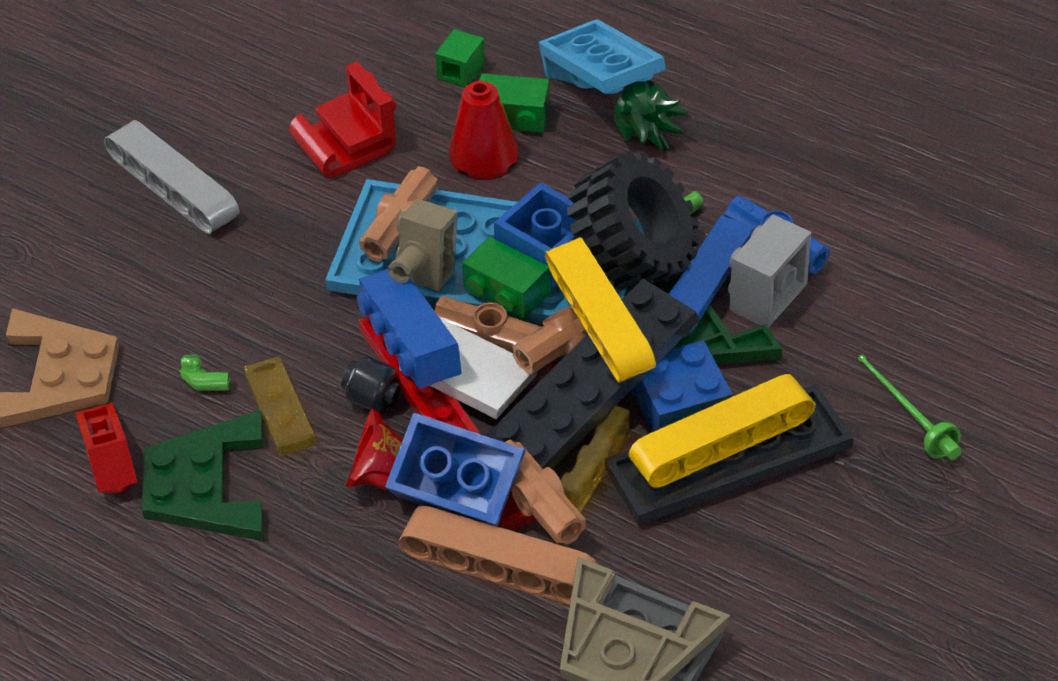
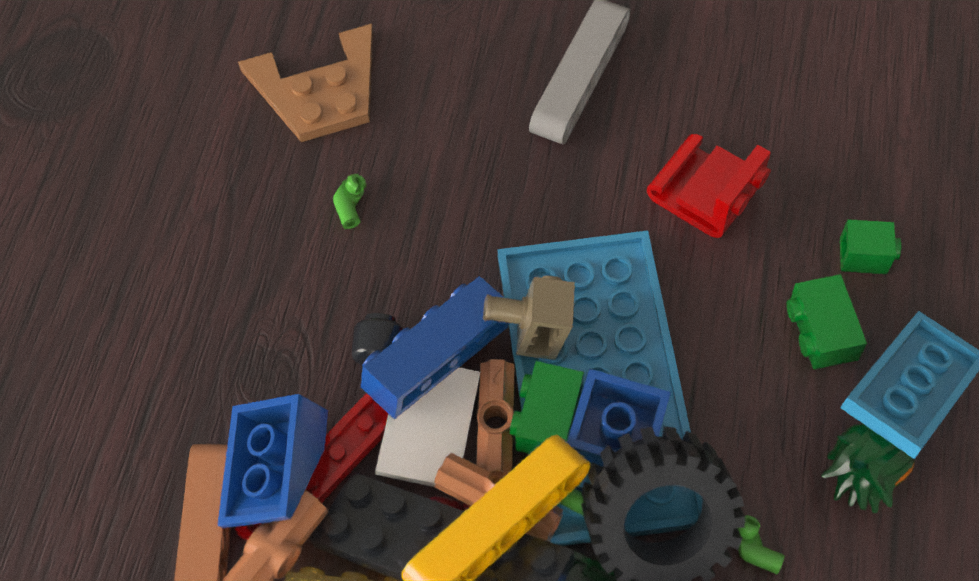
camera: 70 degrees right, 15 degrees up
(106, 448) = (232, 160): red slope -> none
(187, 479) = (226, 240): dark green wing -> none
(279, 406) = (338, 277): clear yellow tile -> none
(375, 453) = (301, 380): red hat -> none
(382, 234) = (602, 277): nougat piece -> none
(482, 134) = (754, 314): red cone -> none

